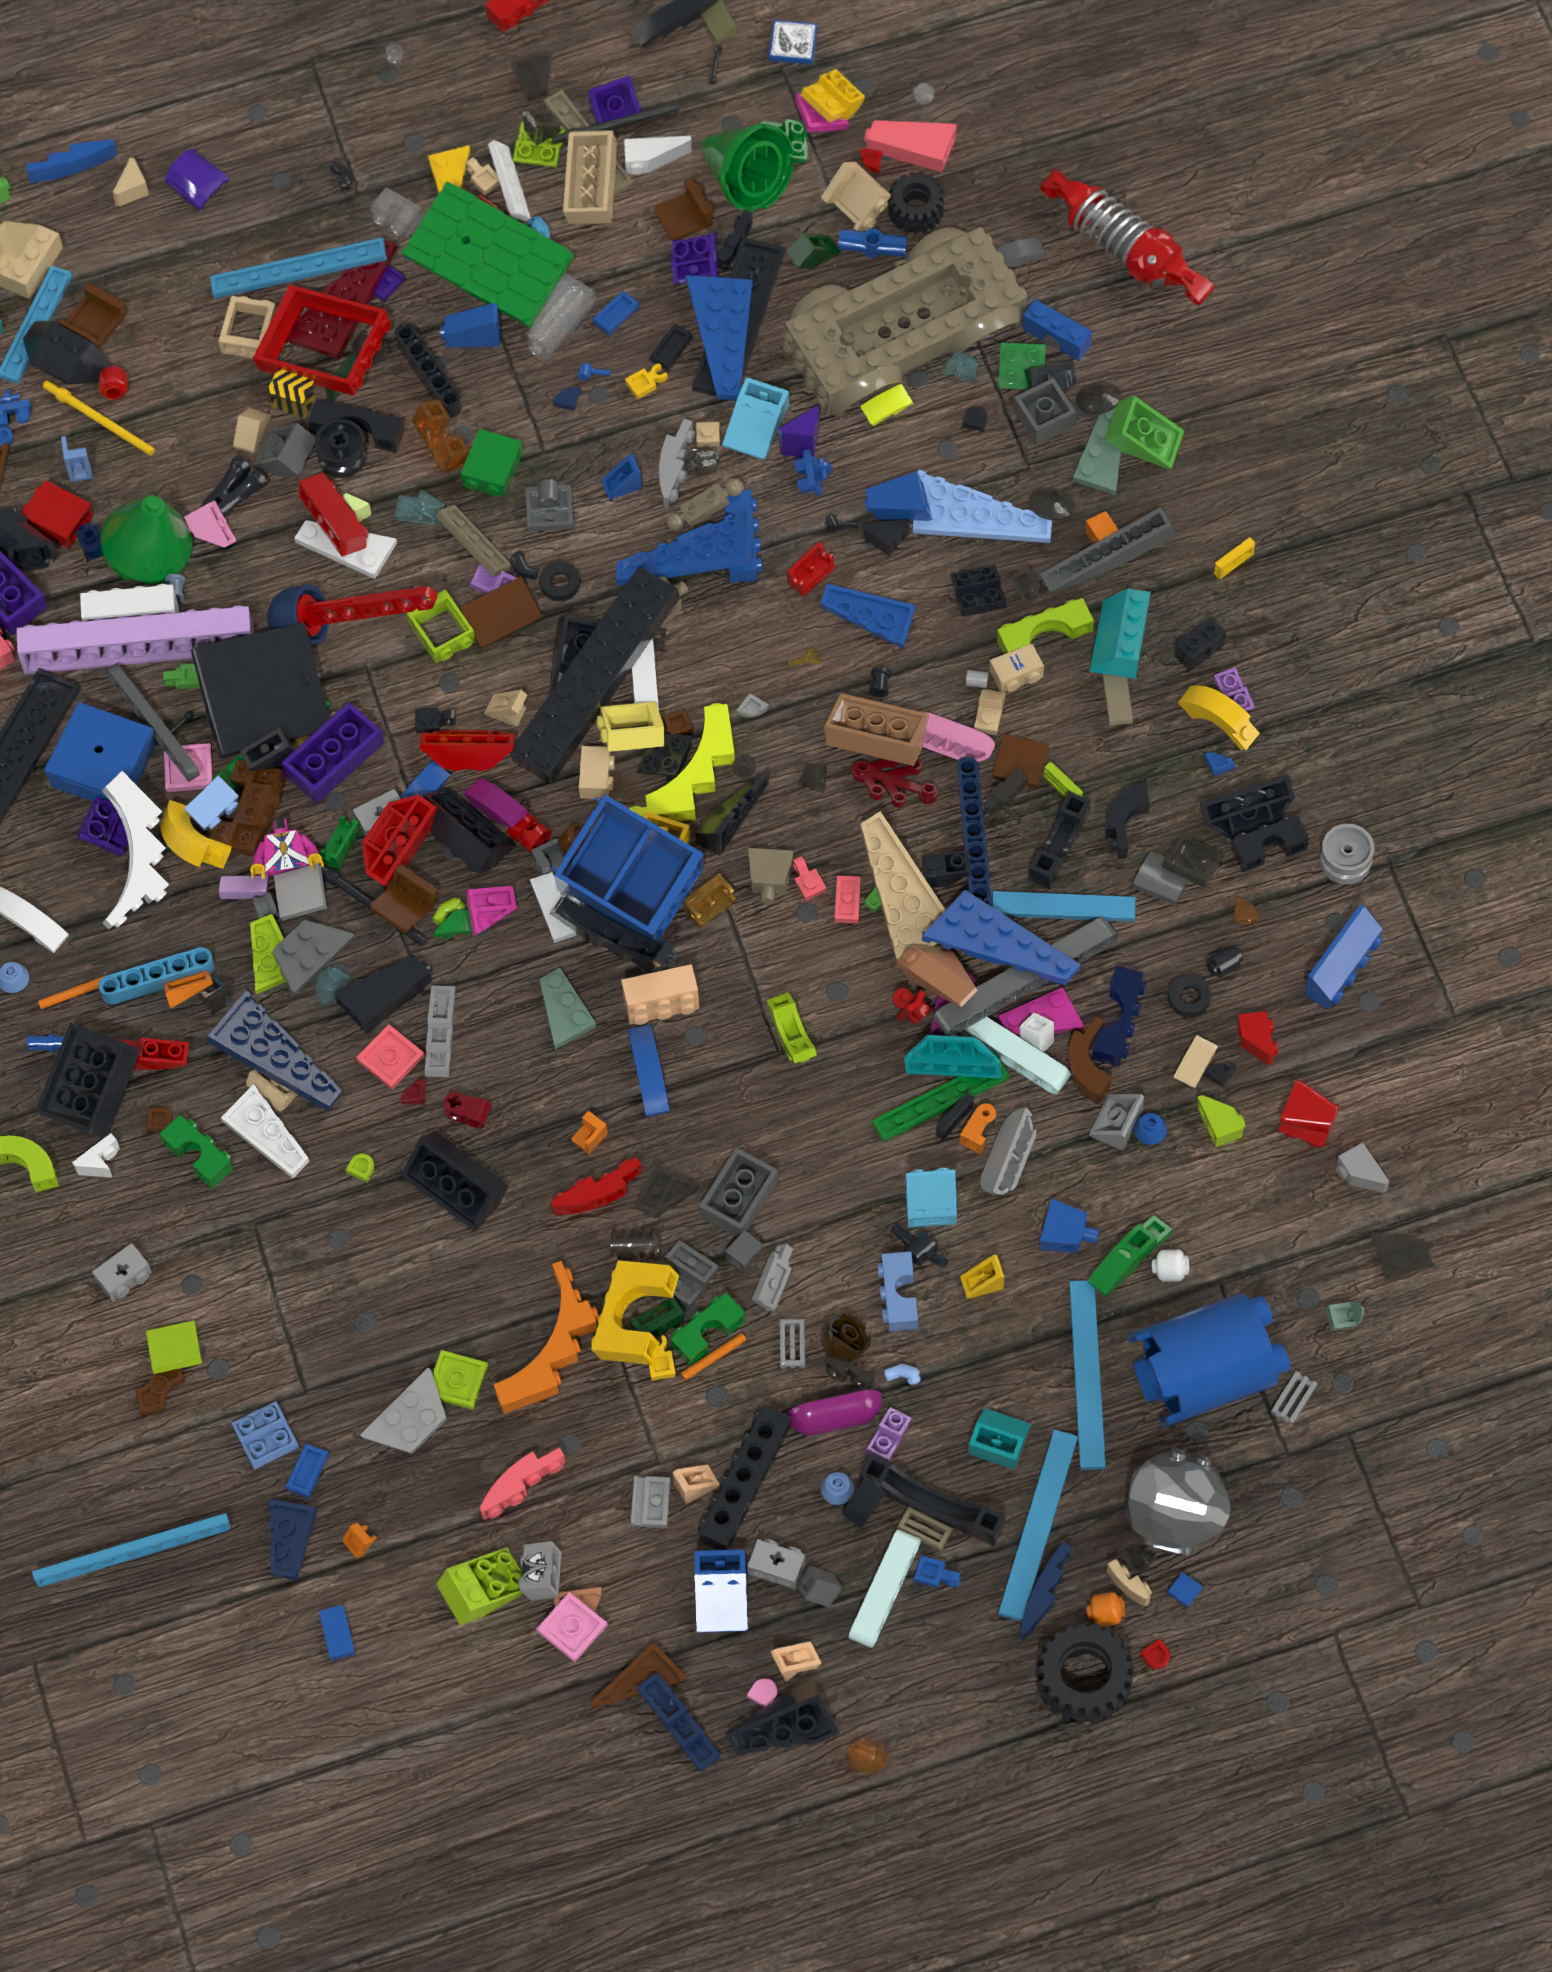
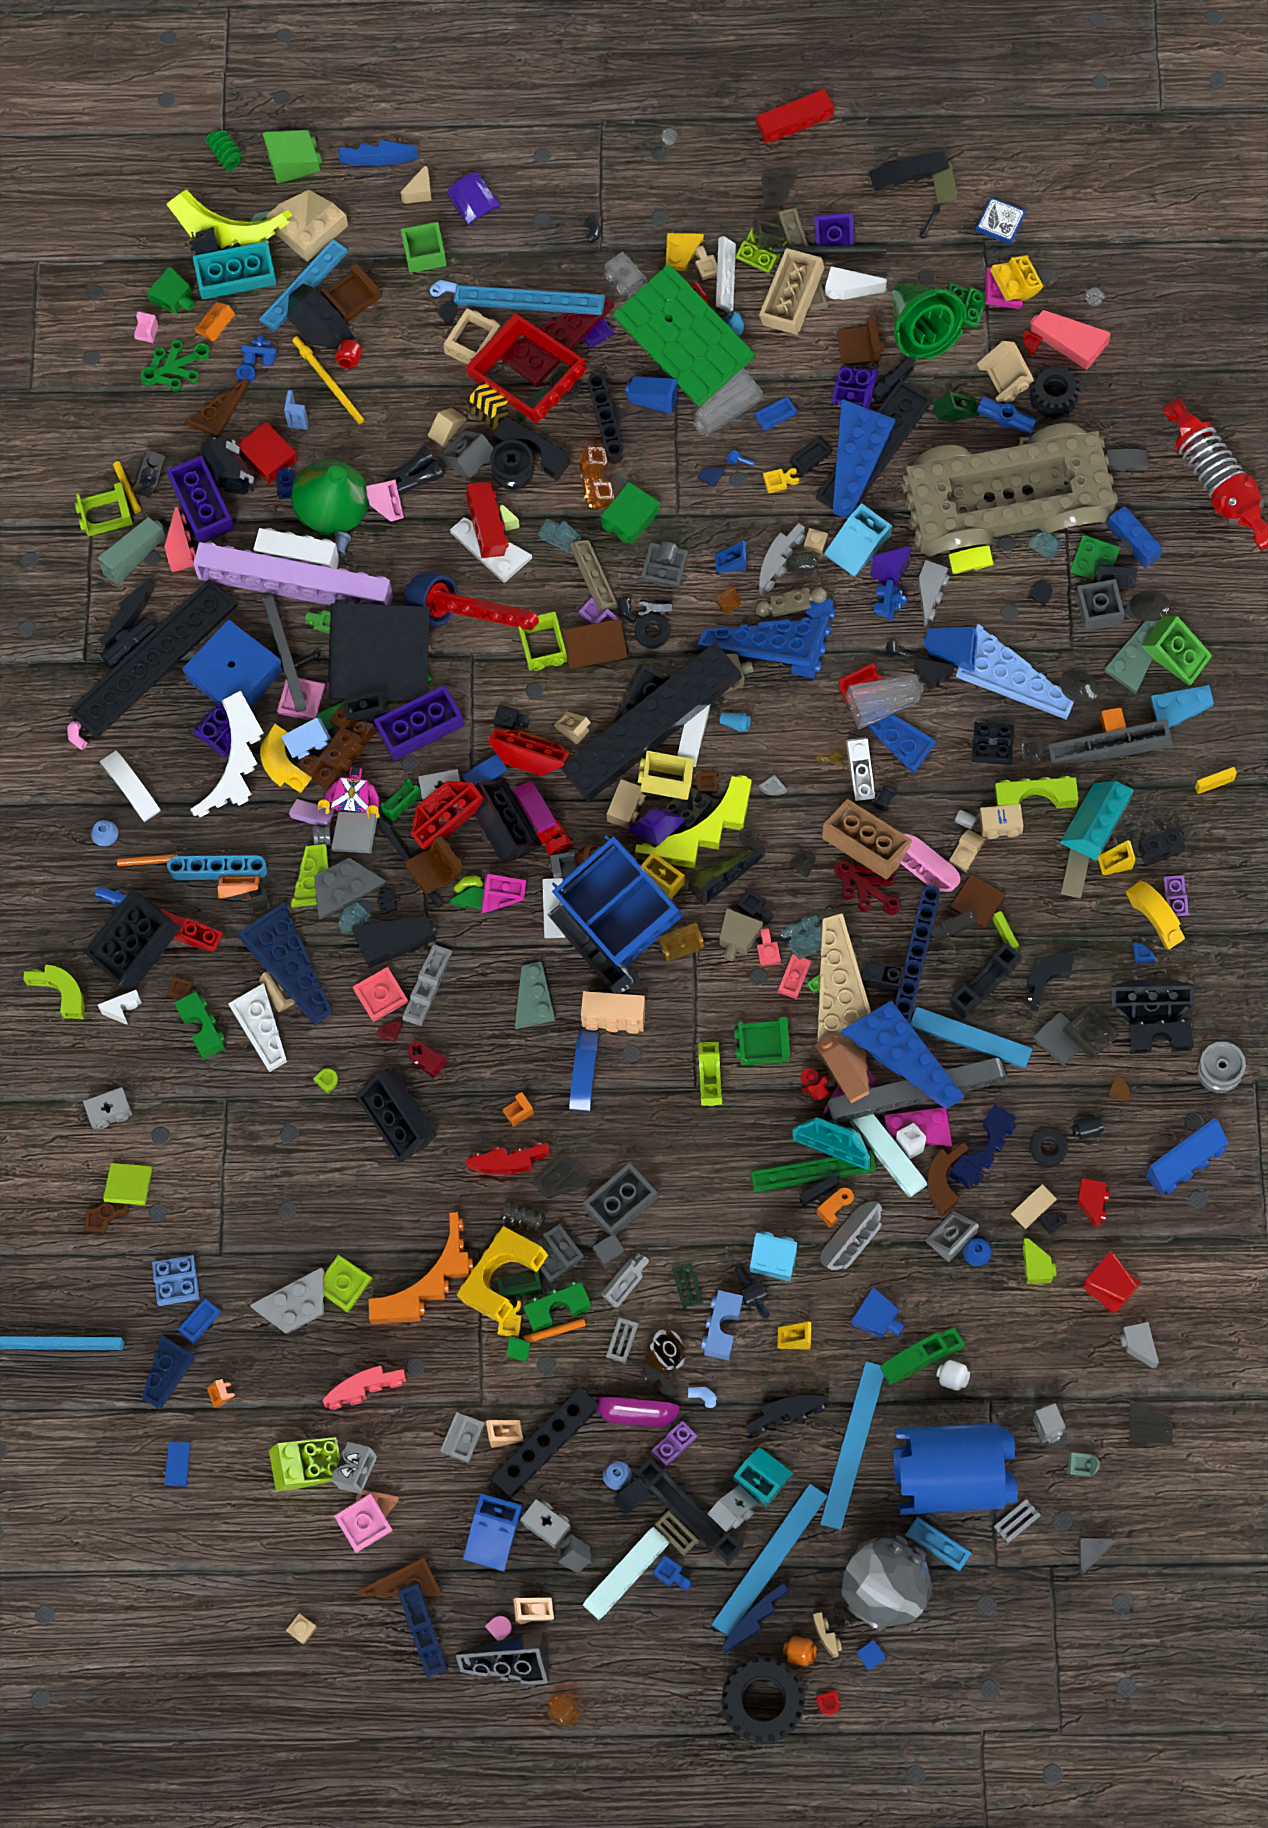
camera: 20 degrees right, 5 degrees up
(159, 245) = (423, 247): none -> bright green piece
(193, 282) = (441, 287): none -> light blue arm
(209, 308) = (447, 313): none -> black tile
(362, 955) = (388, 900): none -> black piece
(540, 1765) = (301, 1629): none -> tan plate
(560, 552) = (661, 606): none -> plate
(634, 524) = (728, 600): none -> clear orange slope
(638, 784) = (656, 825): none -> dark purple slope
(680, 1387) = (518, 1349): none -> green slope
(687, 649) = (736, 721): none -> dark azure cone
(776, 837) = (754, 904): none -> black plate
(837, 979) = (763, 1042): none -> green panel
(841, 576) = (882, 698): none -> clear slope
(842, 658) = (860, 768): none -> white slope
(849, 859) = (807, 943): none -> clear light blue plate
(850, 445) = (930, 584): none -> light grey slope
(854, 1279) = (692, 1303): none -> clear green tile
(980, 1479) = (733, 1508): none -> light grey brick
(1007, 1355) = (794, 1408): none -> black slope
(1158, 671) = (1117, 859): none -> yellow slope
(1169, 490) = (1181, 704): none -> dark azure wing
(1219, 1449) = (938, 1544): none -> dark azure tile
(1293, 1282) = (1049, 1424): none -> light grey brick
(1385, 1403) = (1090, 1551): none -> flat silver slope

